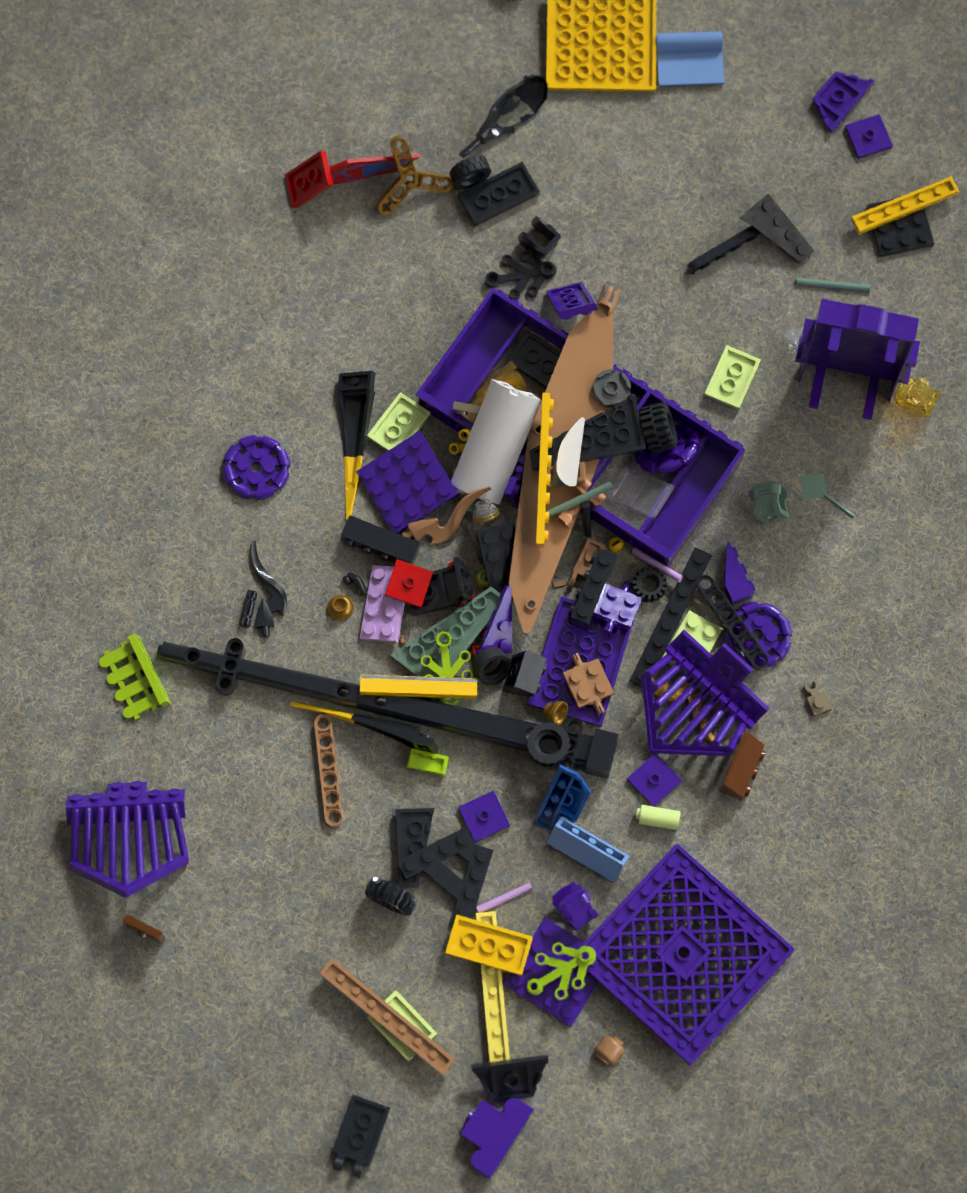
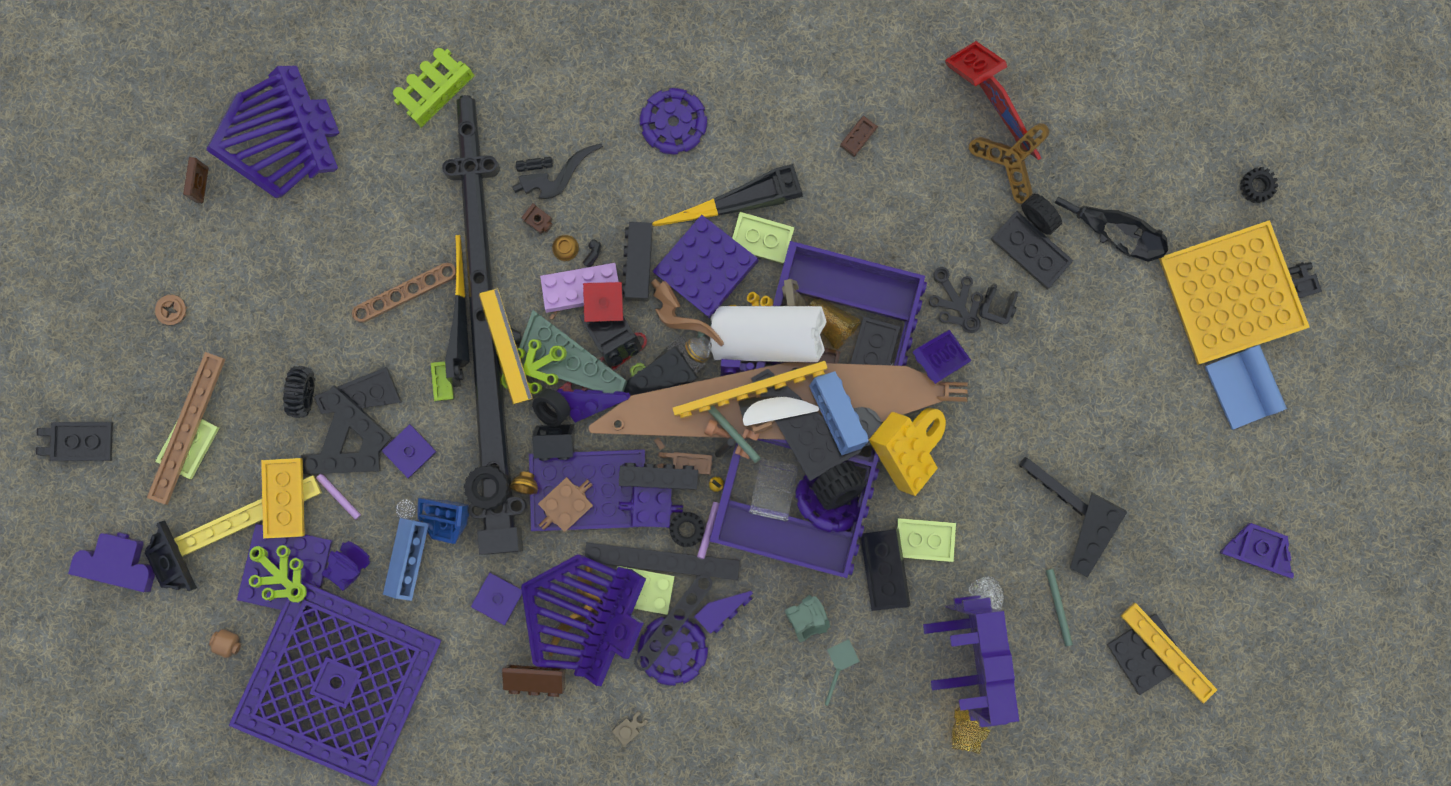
camera: 65 degrees right, 10 degrees up
(261, 991) = (163, 315): none -> medium nougat gear
(303, 628) = (541, 226): none -> reddish brown brick
(335, 307) = (858, 136): none -> reddish brown plate
(593, 400) = (838, 413): none -> medium blue brick
(643, 360) = (907, 447): none -> yellow brick
(658, 817) = (460, 614): yellowish green brick -> none
(749, 420) = (885, 570): none -> black plate
(869, 136) = (1231, 592): dark purple plate -> none

